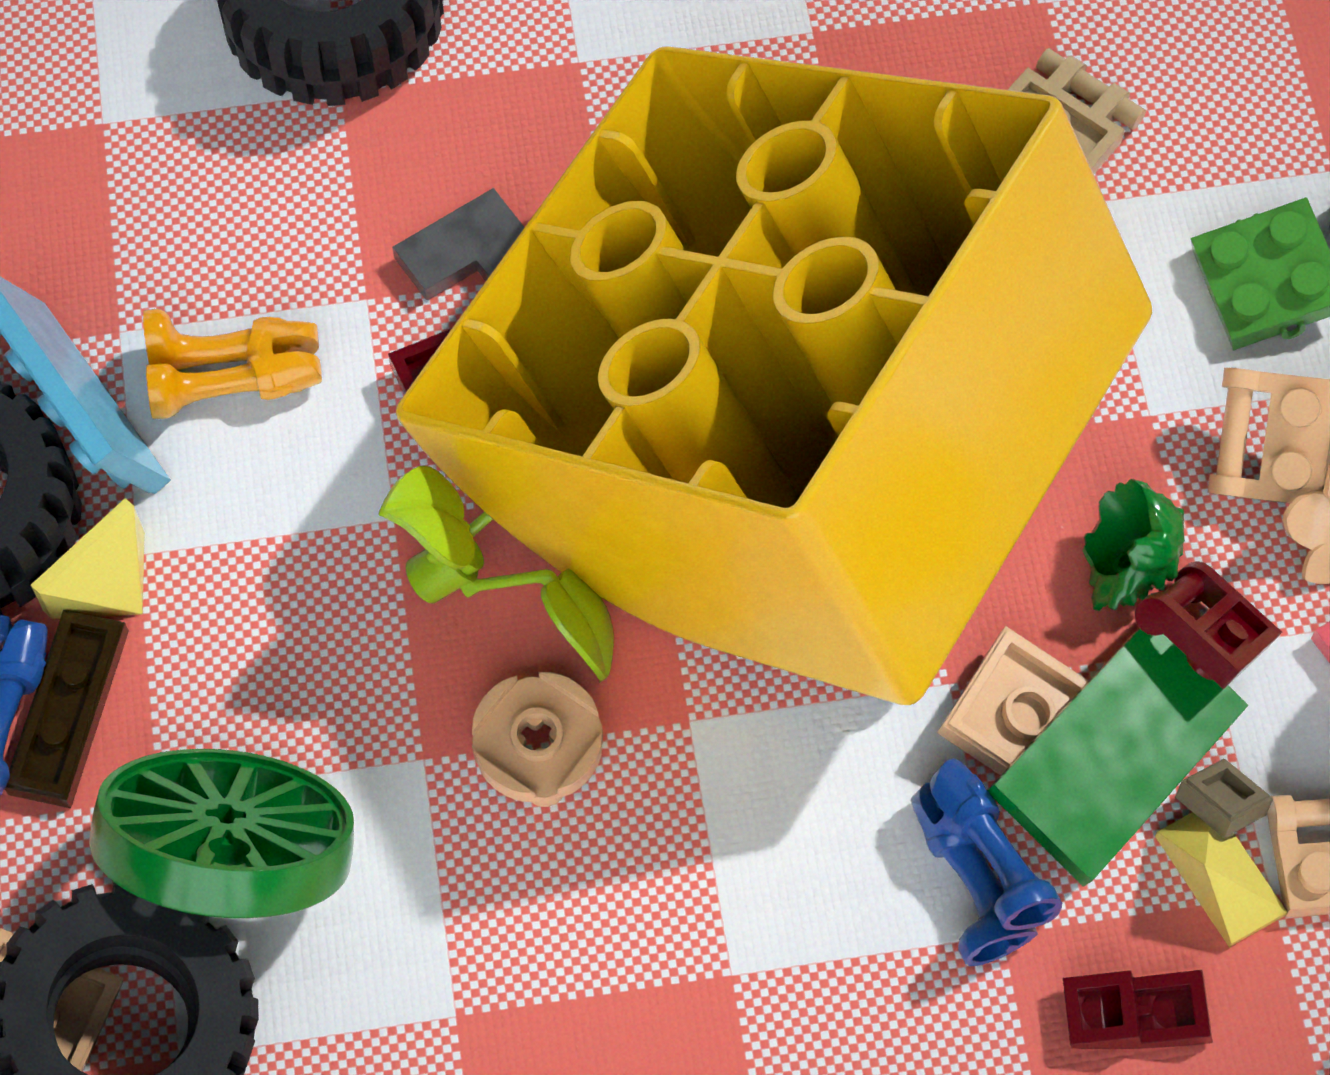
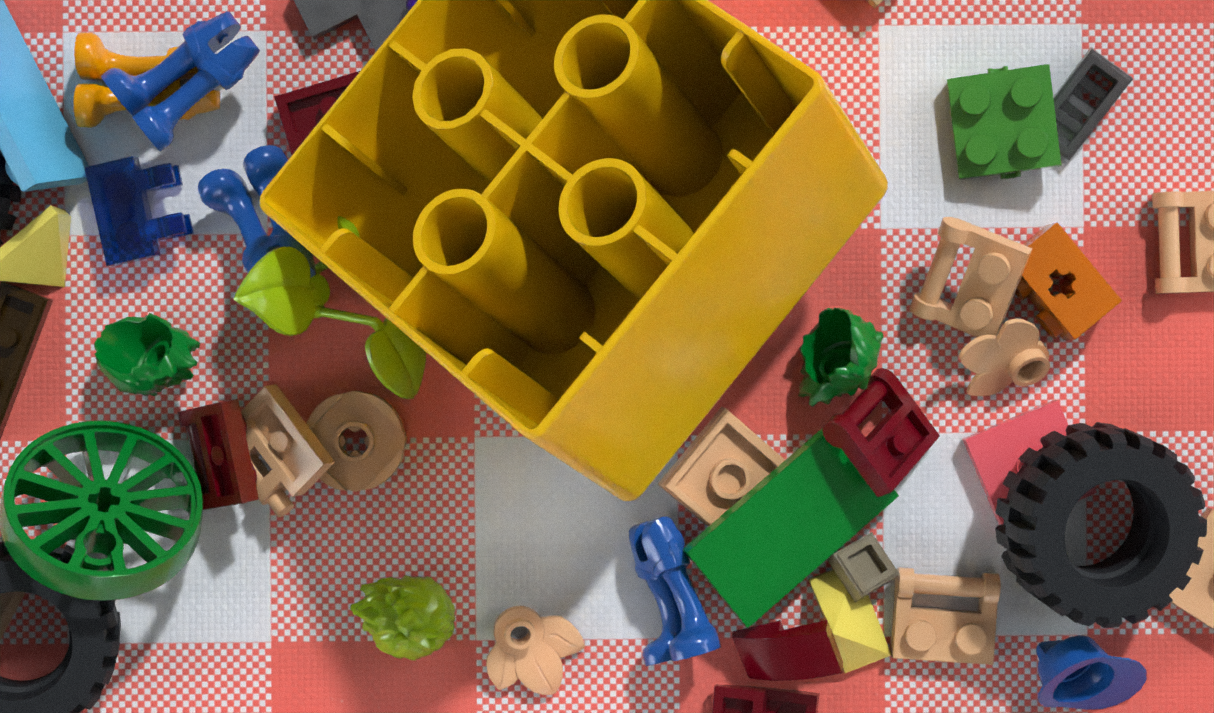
camera: 10 degrees right, 25 degrees up
(213, 509) = (124, 212): none -> clear blue plate
(259, 664) = (145, 354): none -> green hair
(311, 300) = (197, 51): none -> blue piece
(343, 469) = (228, 193): none -> blue piece
(367, 760) = (220, 453): none -> dark red plate
(449, 737) = (286, 446): none -> light nougat plate
(636, 945) = (406, 615): none -> lime hair
(815, 978) = (534, 657): none -> light nougat plate
(1150, 908) = (790, 653): none -> dark red slope

